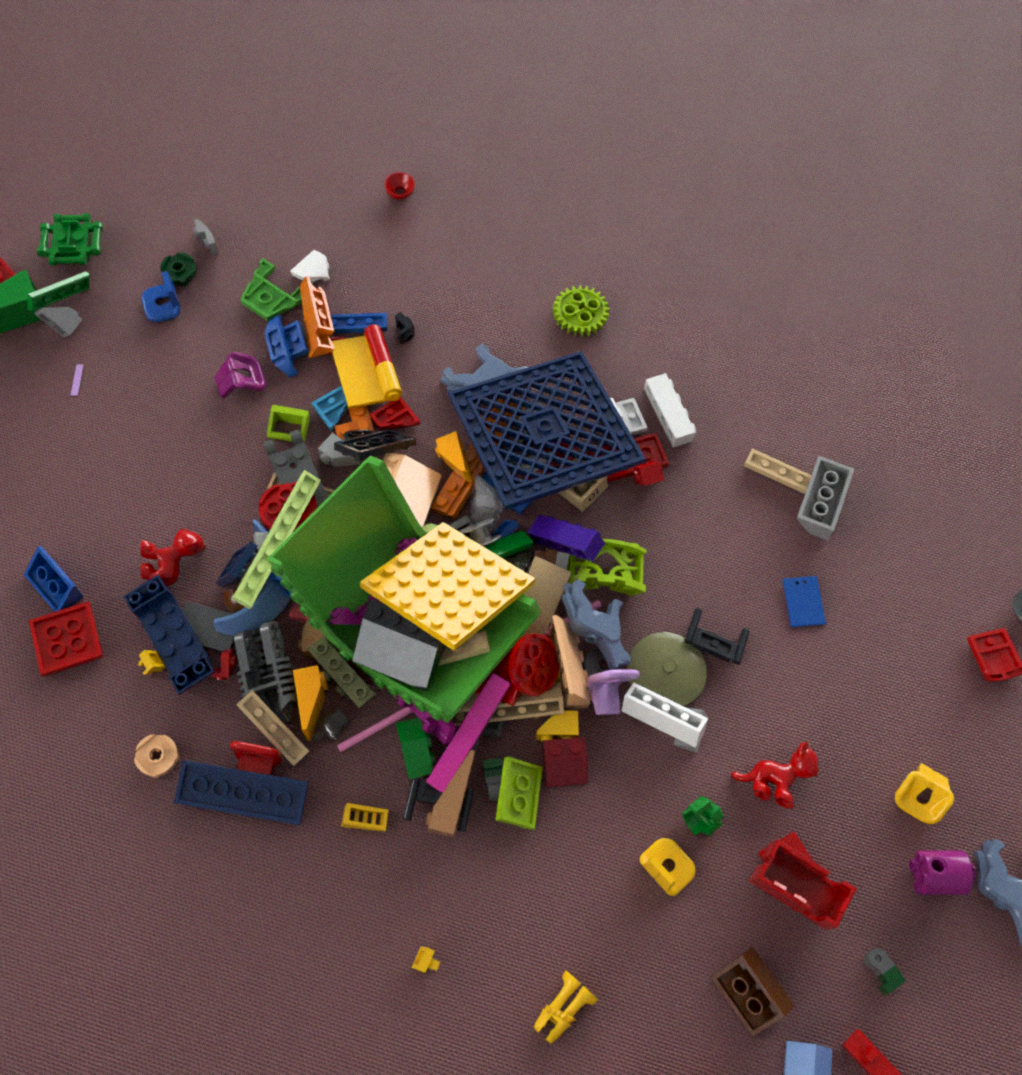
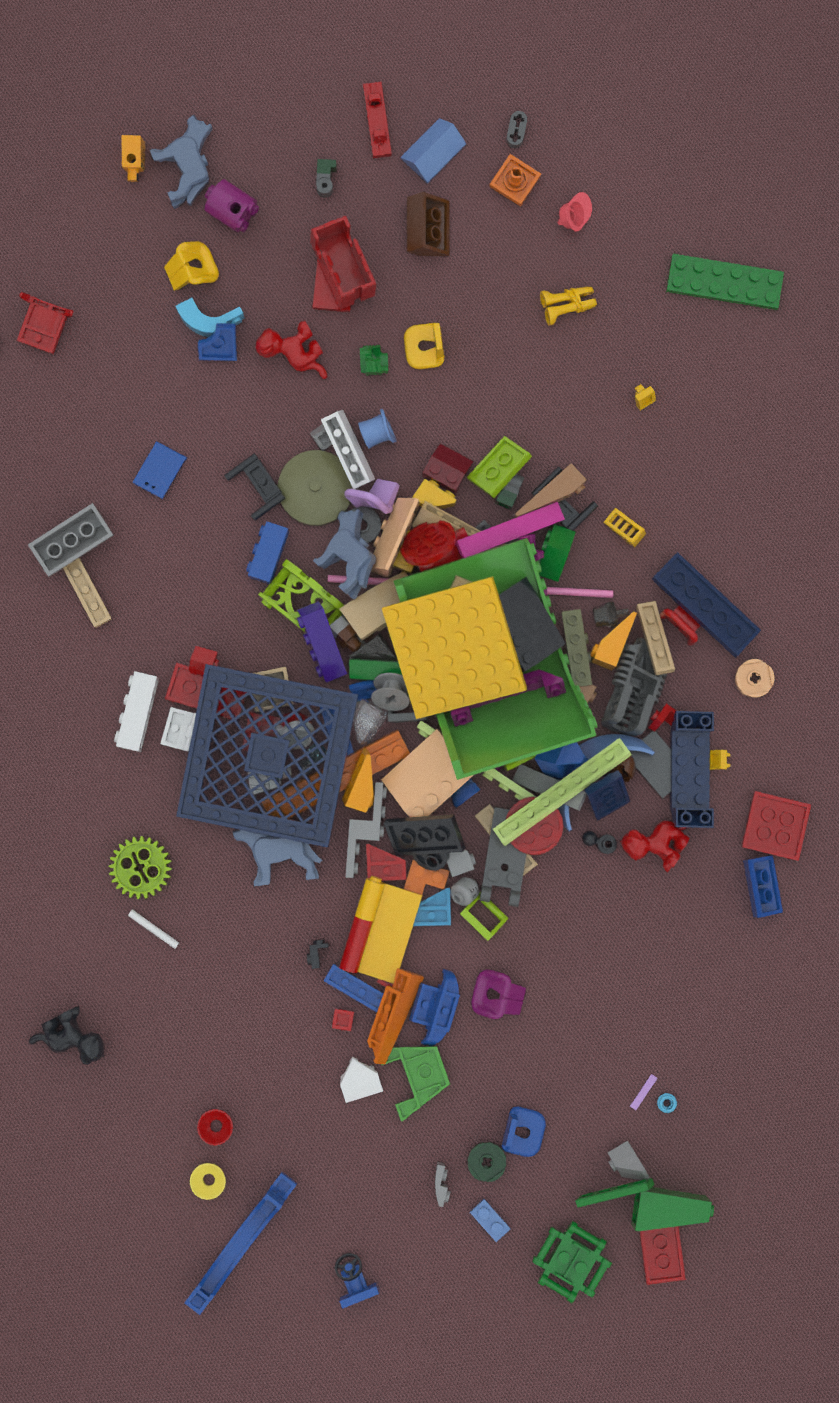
camera: 145 degrees left, 20 degrees up
(48, 377) = (667, 1109): none -> medium azure plate
(153, 237) = (490, 1220): none -> medium blue plate
(225, 150) = (354, 1281): none -> blue piece
(232, 531) = (590, 838): none -> black plate
(315, 430) = (464, 891): none -> light grey head
(327, 156) = (240, 1242): none -> blue slope
(353, 298) = (343, 1019): none -> red plate
(378, 150) = (205, 1191): none -> light yellow piece
(428, 430) = (365, 830): none -> light grey bracket
(539, 280) = (154, 929): none -> white bar
(549, 181) = (89, 1045): none -> black animal
(651, 751) = (376, 430): none -> medium blue piece
(664, 589) = (267, 552): none -> blue brick
(844, 737) = (220, 344): none -> blue tile
(877, 745) = (204, 324): none -> medium azure arch

